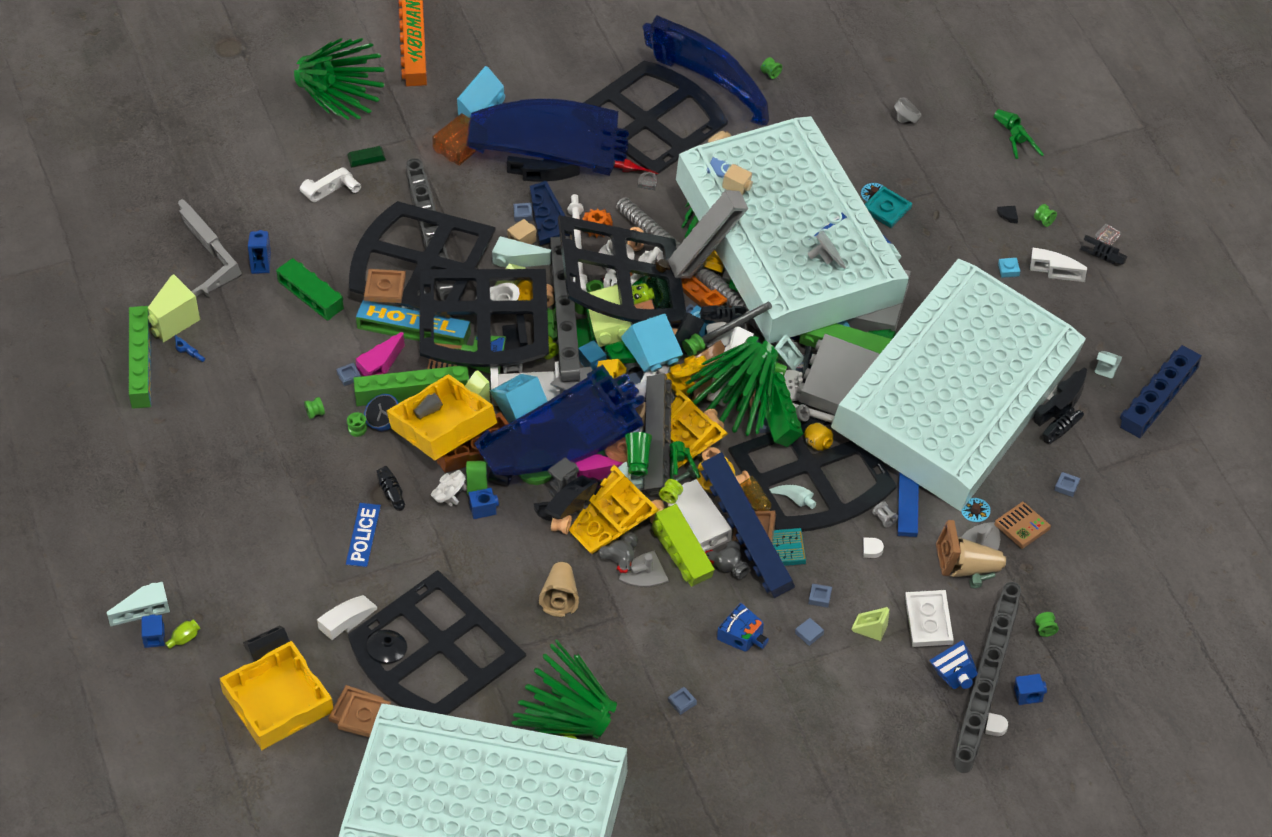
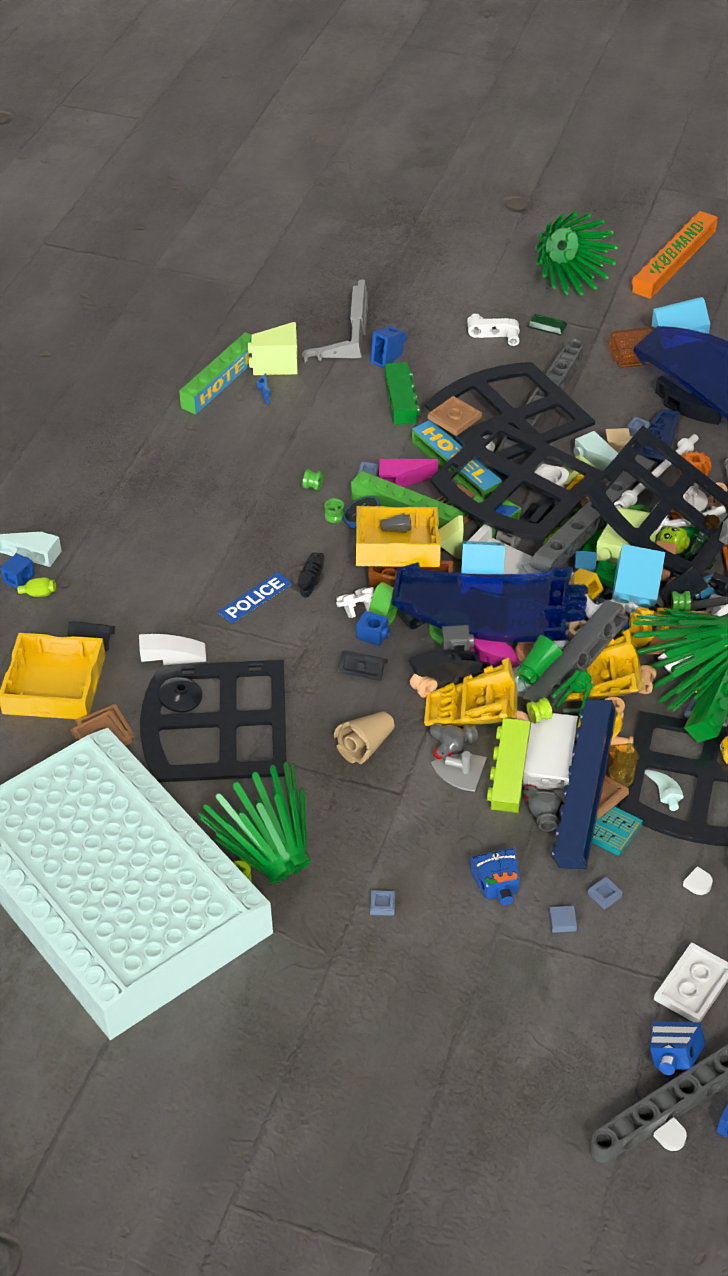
camera: 40 degrees right, 5 degrees down
(502, 536) = (362, 665): none -> black panel
(872, 623) = (631, 952): yellowish green slope -> none

